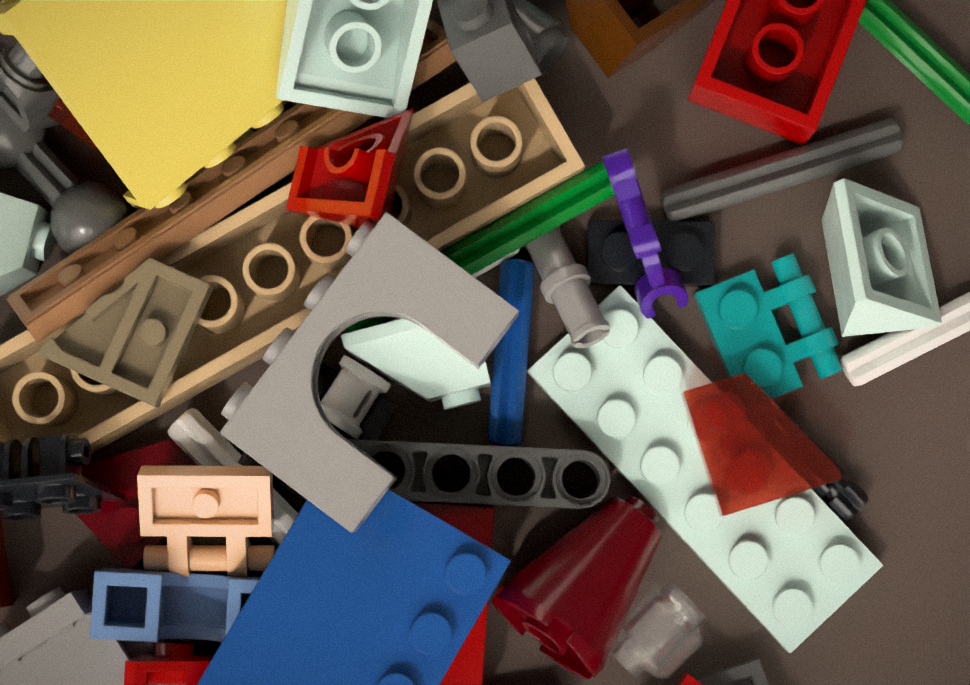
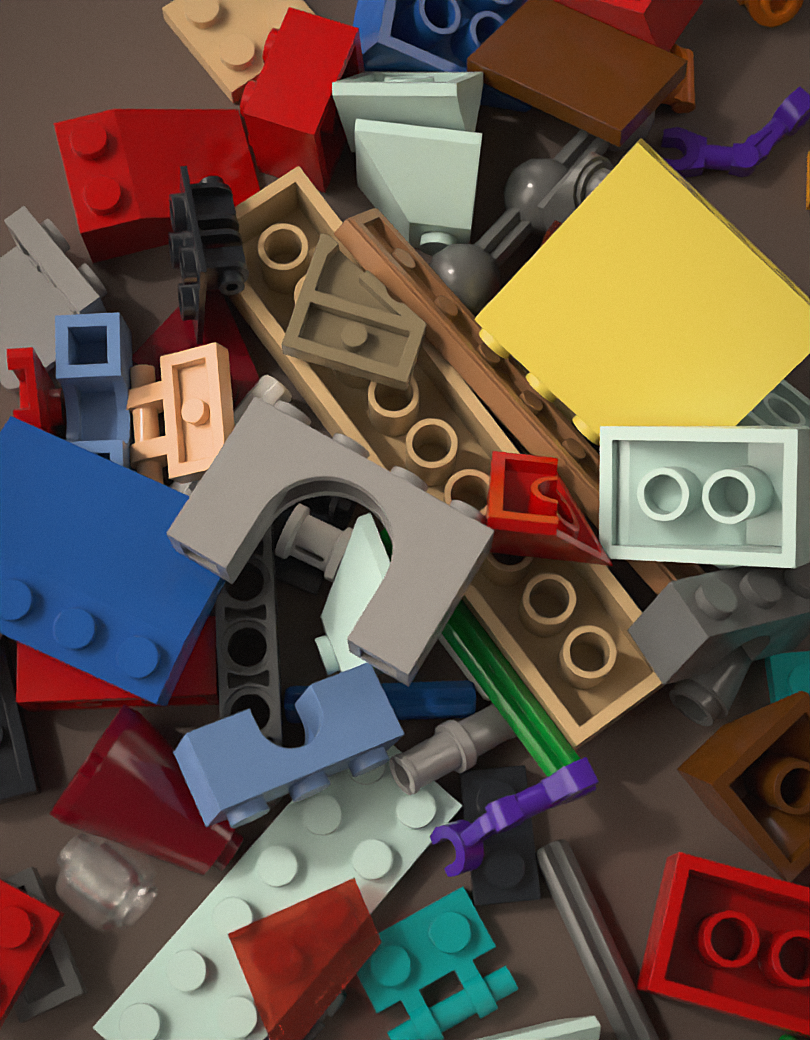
camera: 80 degrees right, 10 degrees down
(577, 489) = (239, 771): none -> medium blue arch

